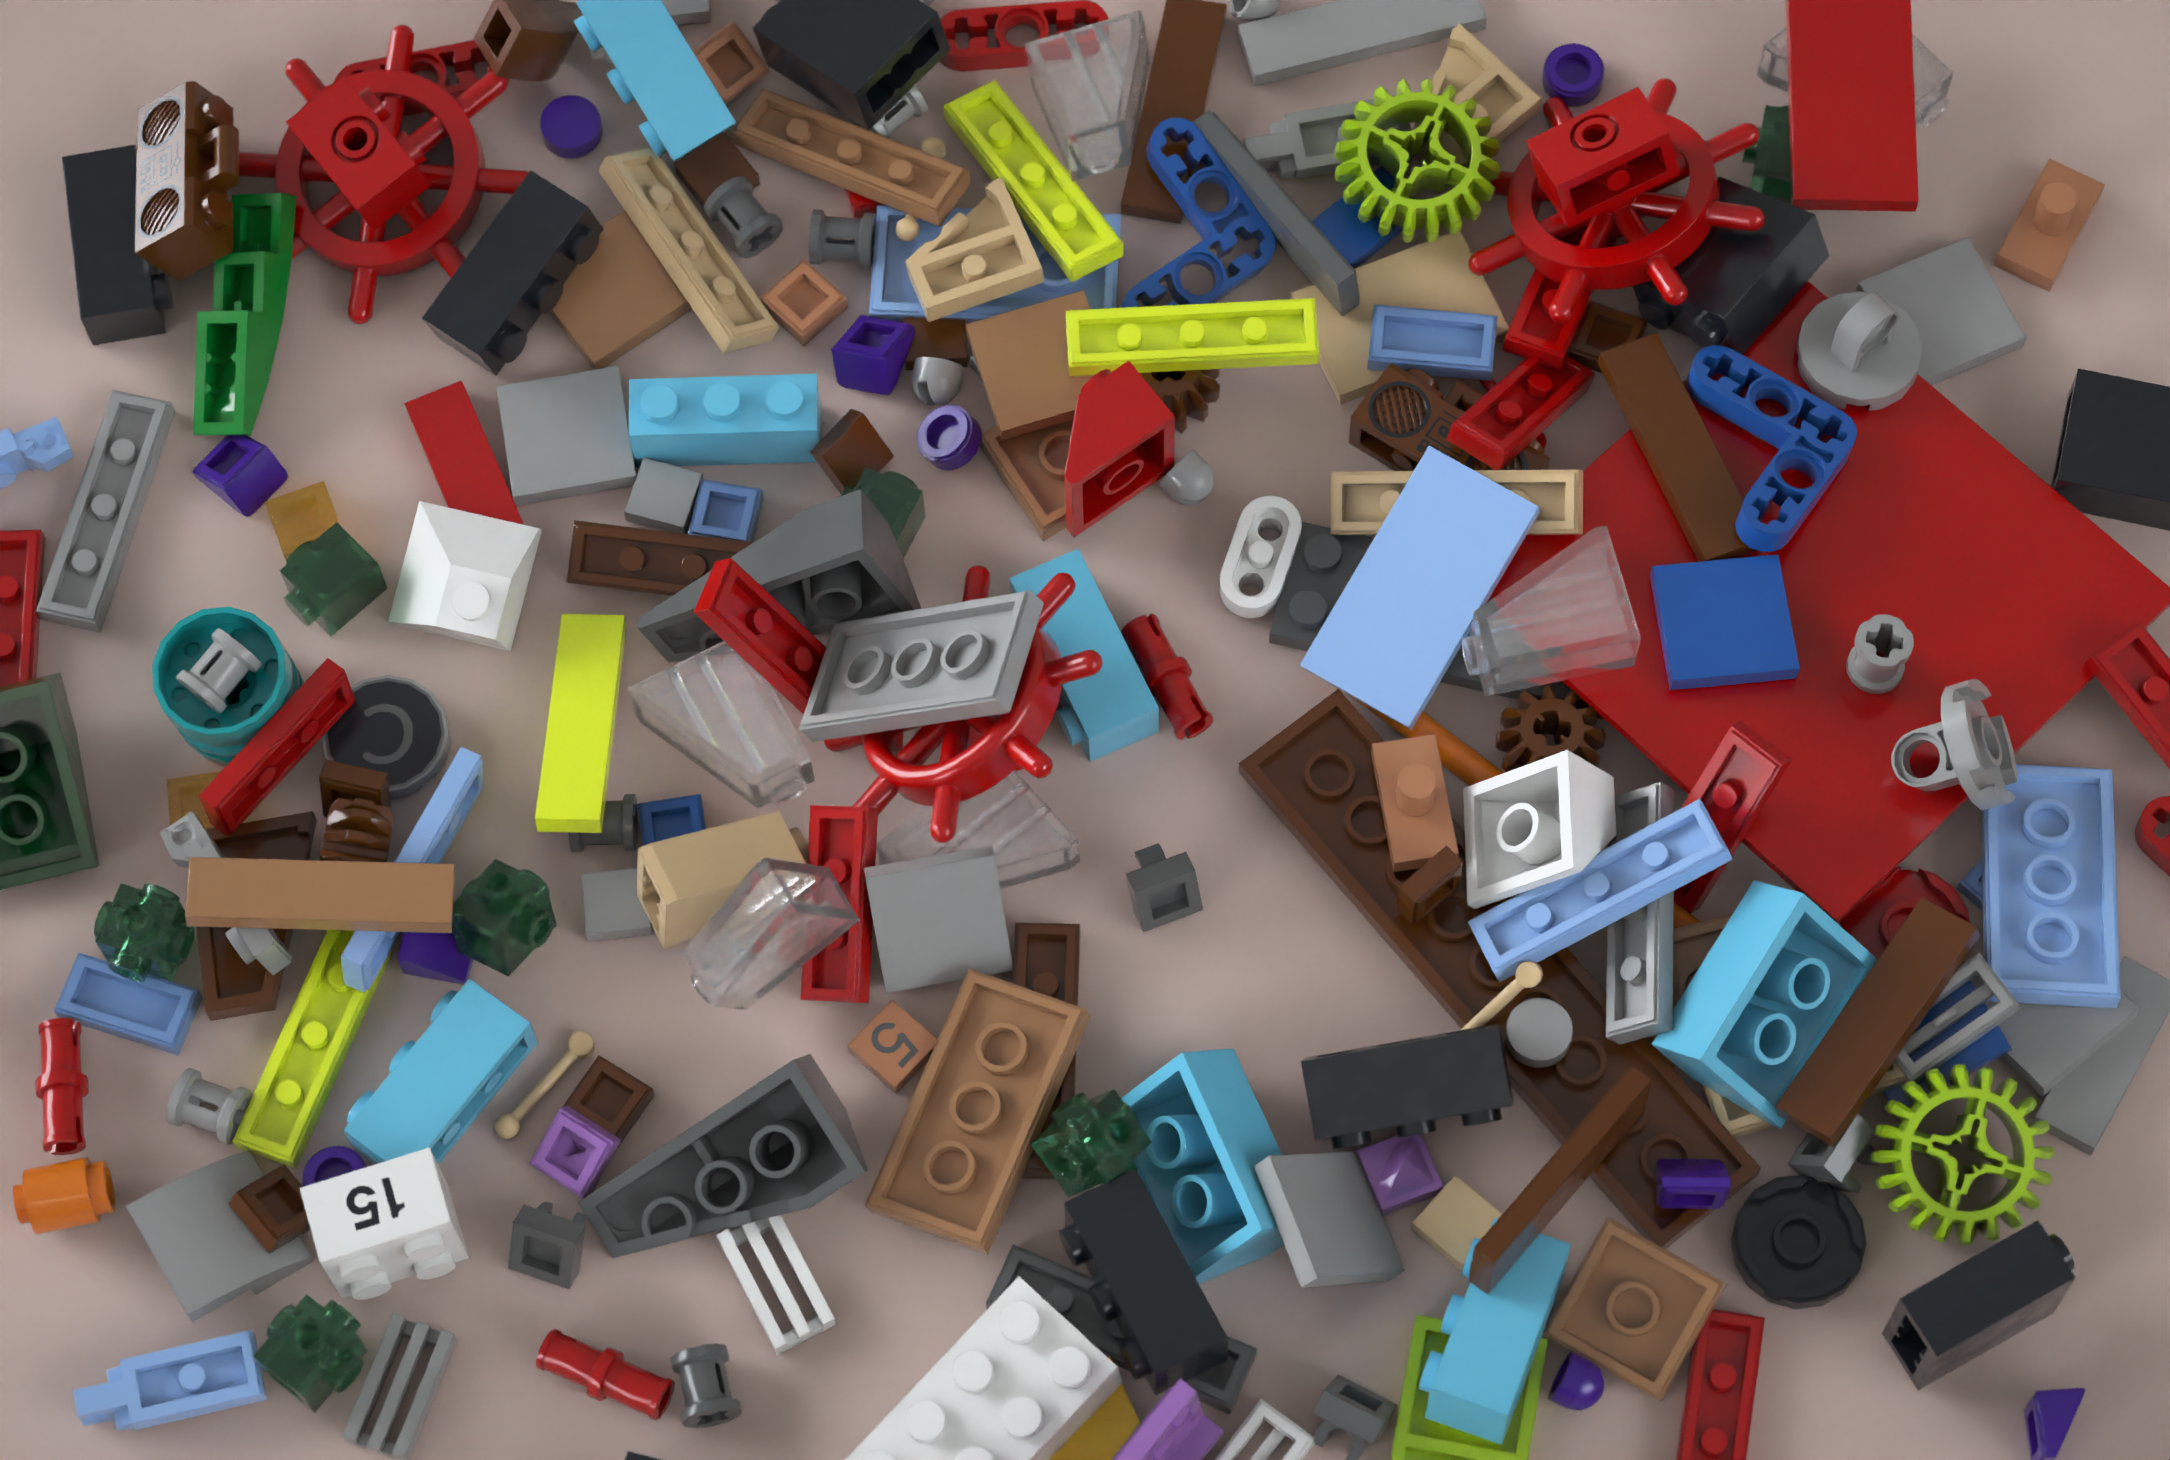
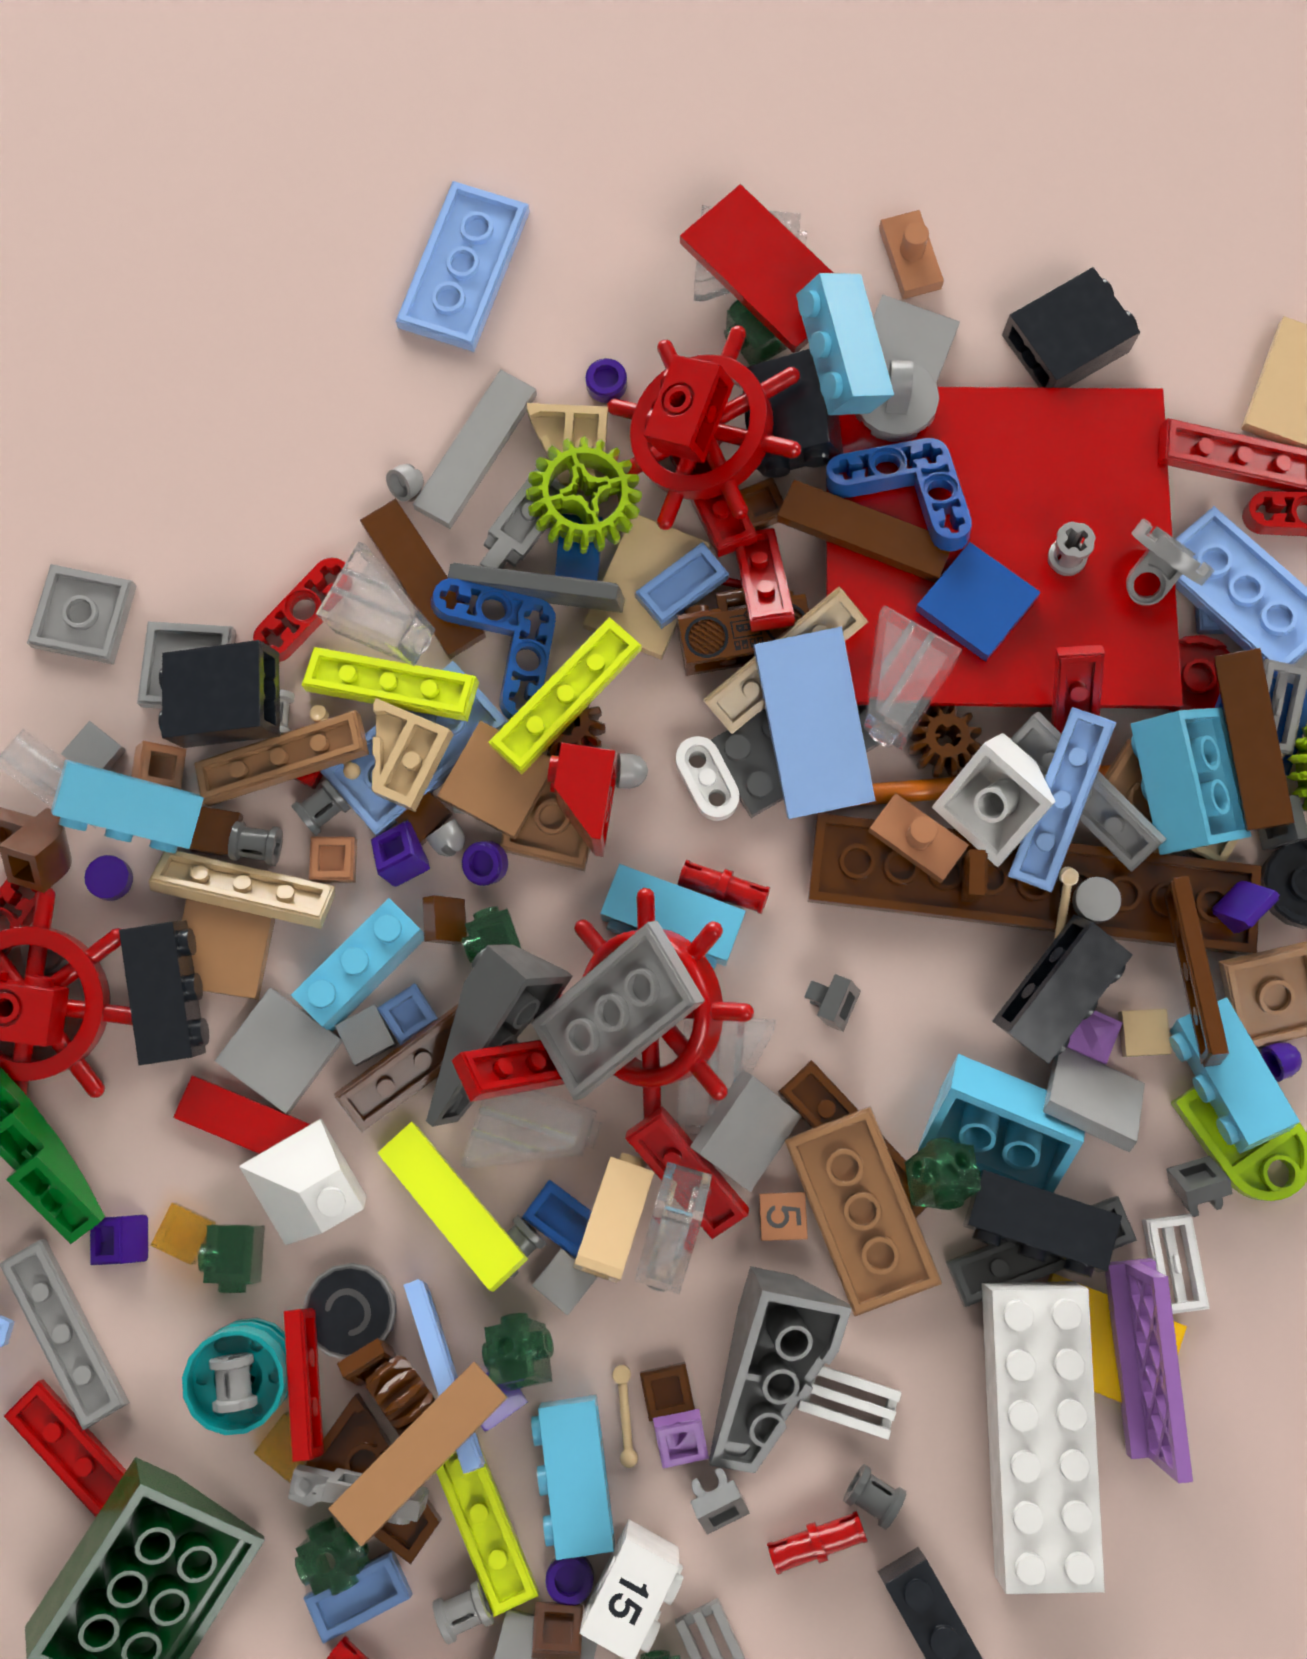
camera: 45 degrees left, 10 degrees up
(1837, 232) = (844, 344): none -> medium azure brick

